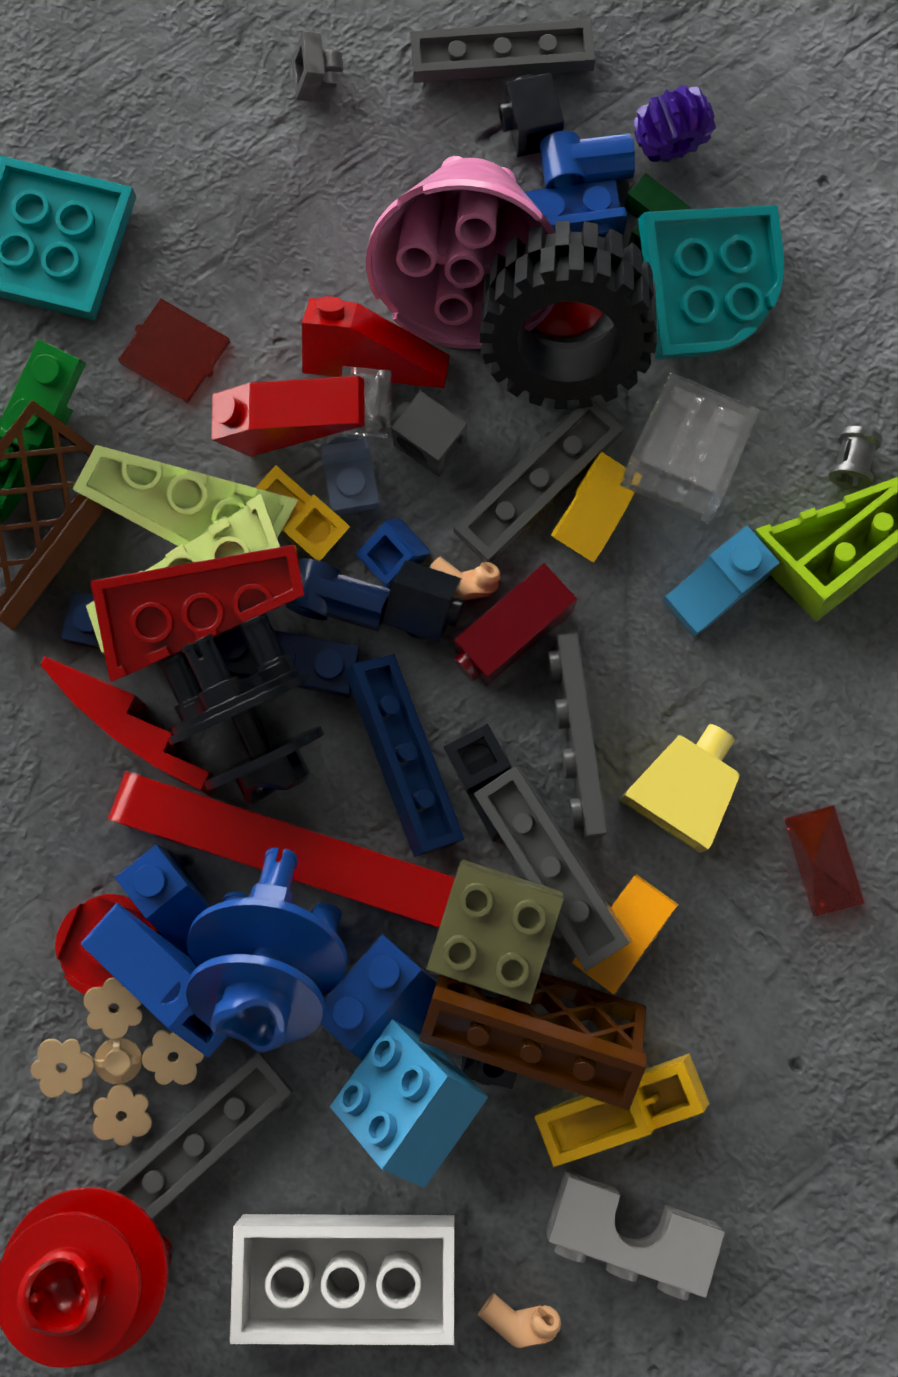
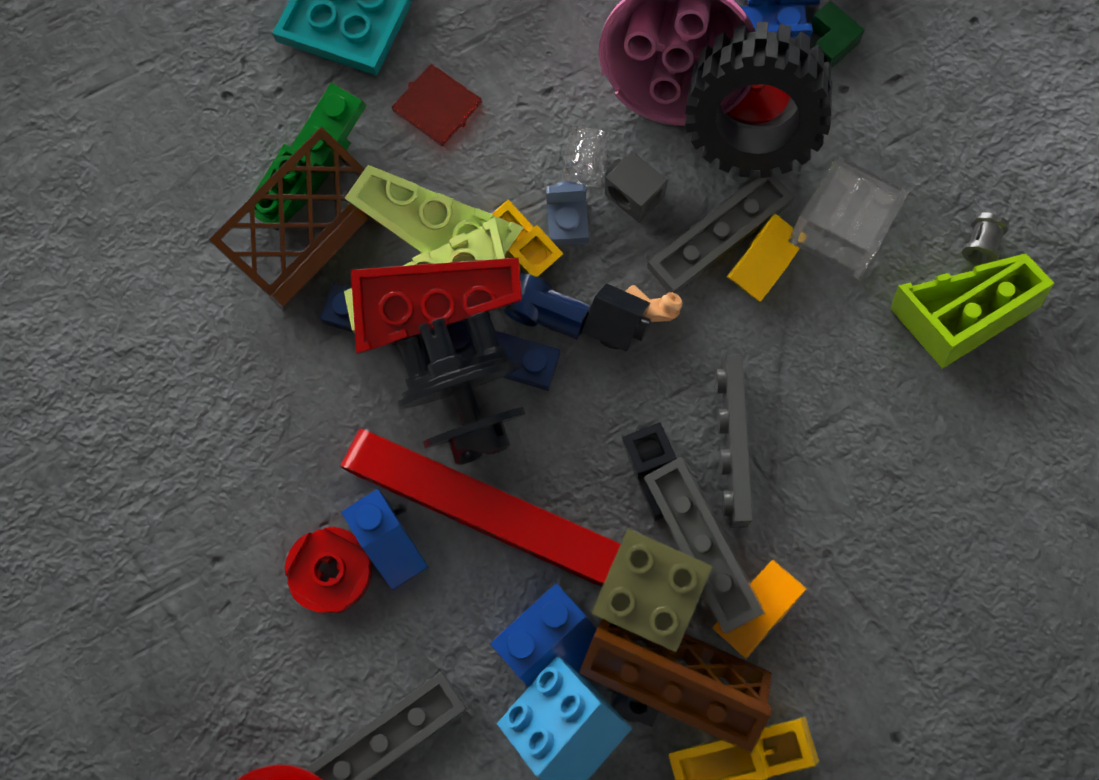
camera: 10 degrees right, 5 degrees down
(115, 1062) = (324, 666): tan plant -> none
(119, 715) = (360, 384): red slope -> none
(151, 972) = (372, 600): blue slope -> none
(265, 960) = (456, 592): blue piece -> none
(286, 412) = (522, 157): red slope -> none
(353, 336) = (582, 103): red slope -> none
(390, 548) = (593, 274): blue slope -> none
(404, 755) = (588, 441): dark blue plate -> none
(513, 625) = (689, 345): dark red brick -> none
(687, 788) = (822, 493): light yellow torso -> none
(711, 275) = (878, 84): teal plate -> none
(721, 581) = (866, 327): dark azure arch -> none
(824, 861) = (933, 567): clear red slope -> none

